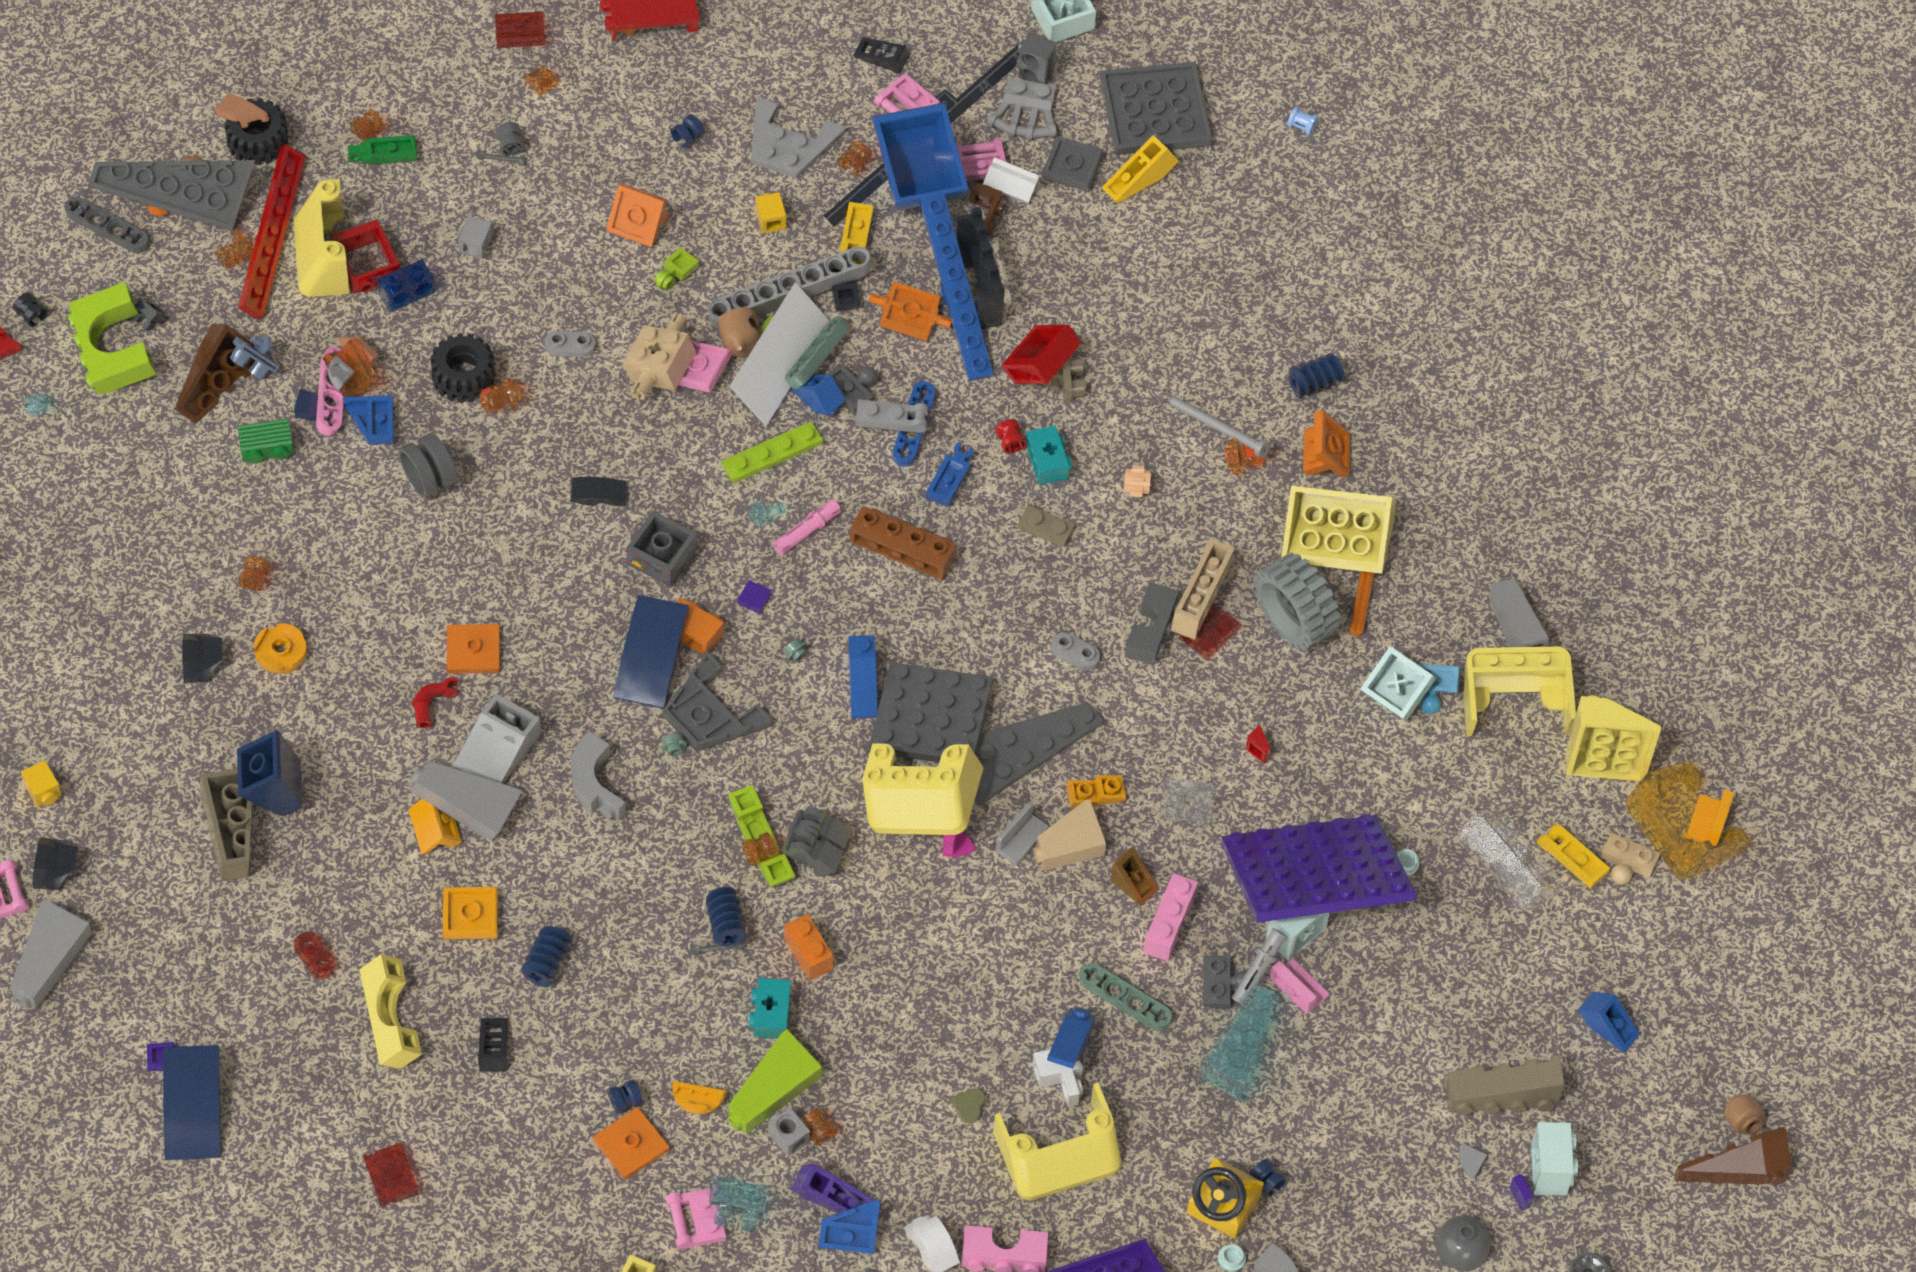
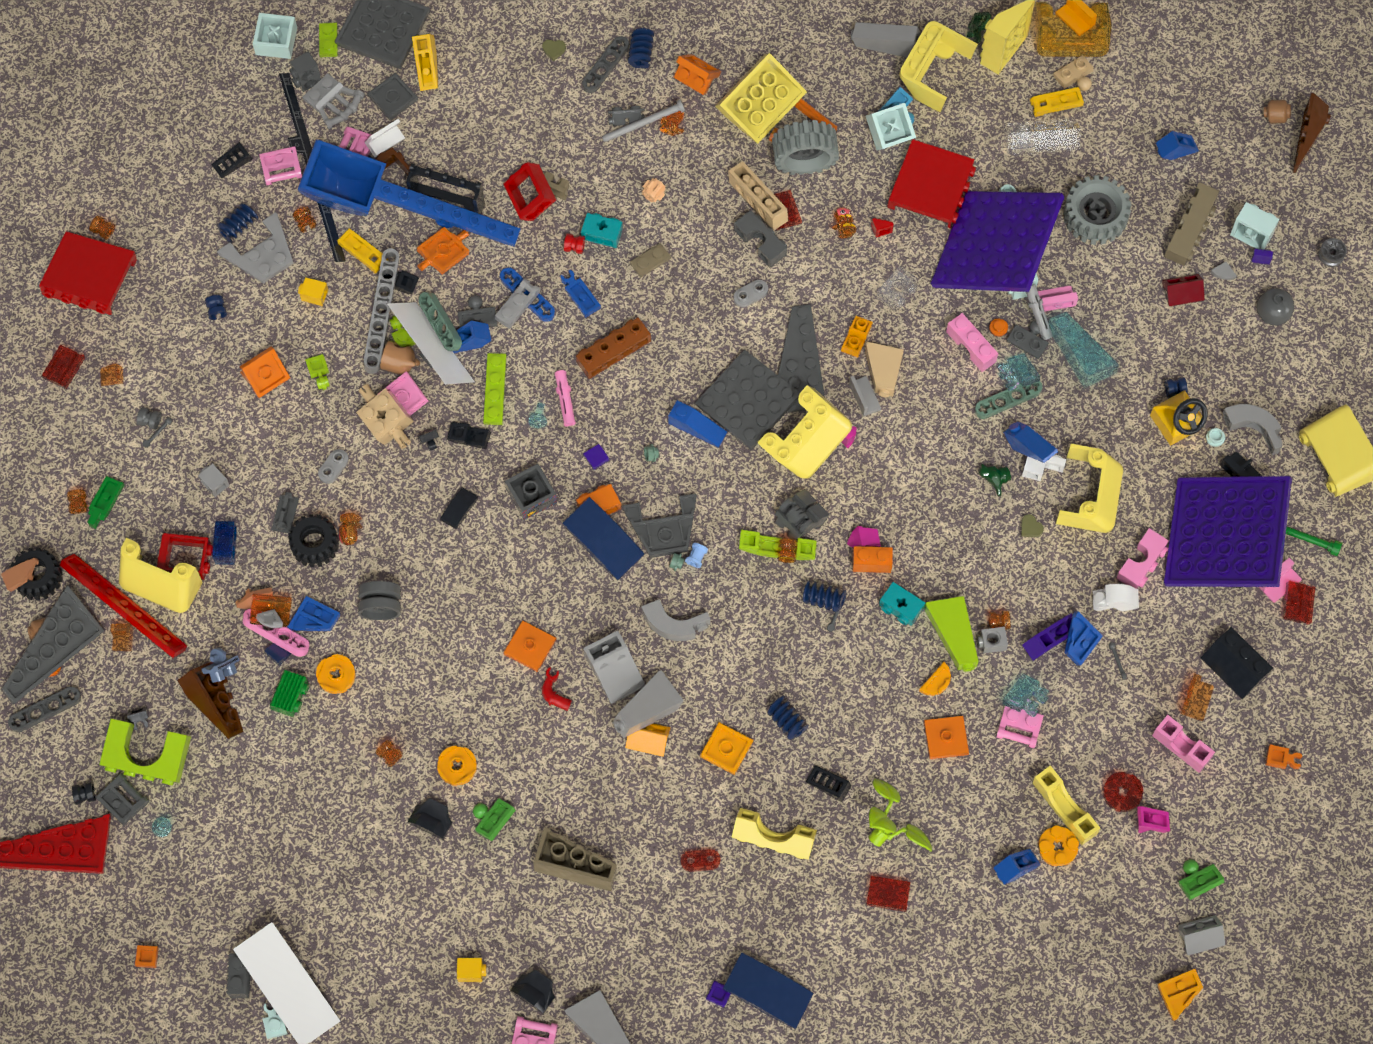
camera: 55 degrees left, 10 degrees up
(37, 348) = (117, 804): none -> dark grey plate
(239, 716) = (492, 819): none -> bright green plate
(270, 774) = (560, 820): dark blue slope -> none
(324, 485) = (331, 664): none -> light orange plate
(459, 1099) = (885, 826): none -> lime plant
(484, 326) = (285, 513): none -> dark grey hinge
(624, 1096) = (913, 723): dark blue wheel -> none
(662, 417) = (428, 438): none -> black tile
(695, 760) = (696, 555): none -> light blue bush
(696, 456) = (467, 435): none -> black slope
(804, 95) = (235, 221): none -> dark blue piece
(833, 928) = (864, 537): none -> dark pink tile
(1009, 1030) = (995, 476): none -> dark green animal
(1107, 60) = (327, 35): none -> lime plate
(1133, 877) = (931, 348): pearl gold slope -> none
(1165, 987) = (1023, 372): none -> clear light blue plate
(1210, 399) = (619, 115): none -> dark grey hinge
(1214, 939) = (998, 327): none -> orange plate
(1240, 699) = (844, 221): none -> clear orange animal
(1253, 291) = (554, 49): none -> olive tile
(1269, 348) = (606, 65): none -> dark grey beam
(1358, 769) = (932, 182): none -> red panel
(1412, 1124) = (1184, 289): none -> dark red panel
(1462, 952) = (1098, 195): none -> light grey wheel

